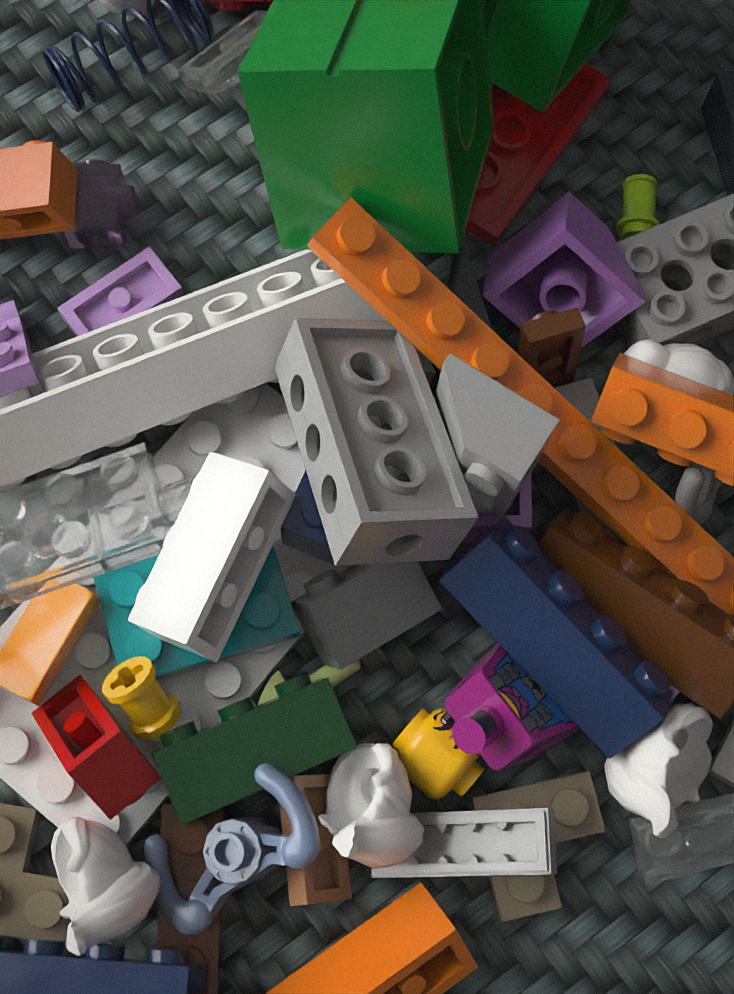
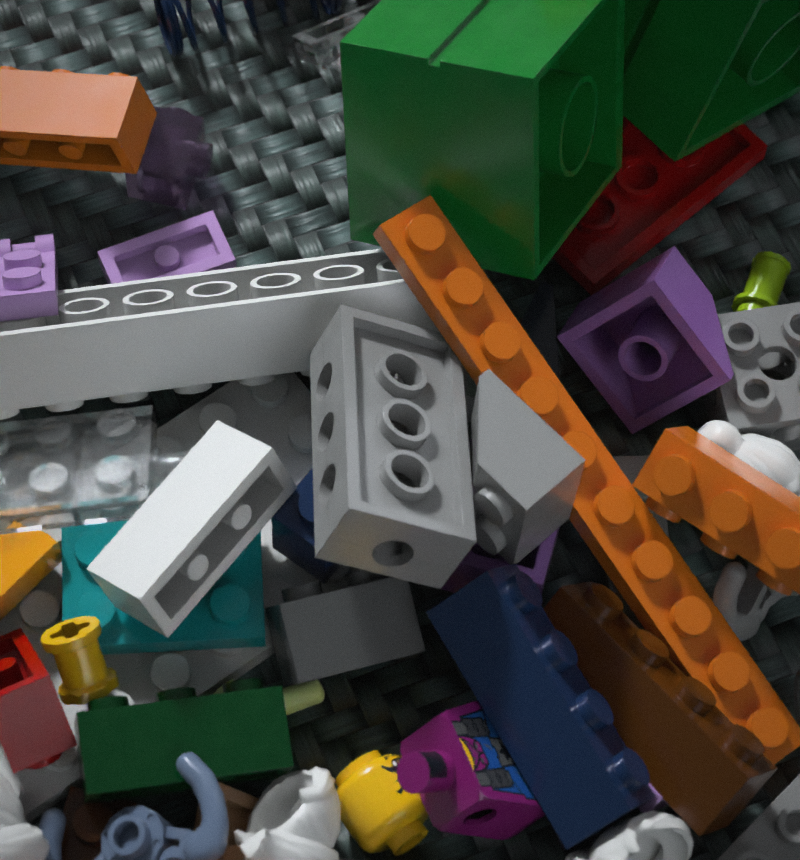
camera: 15 degrees right, 10 degrees down
(553, 344) = (618, 406): reddish brown plate -> none

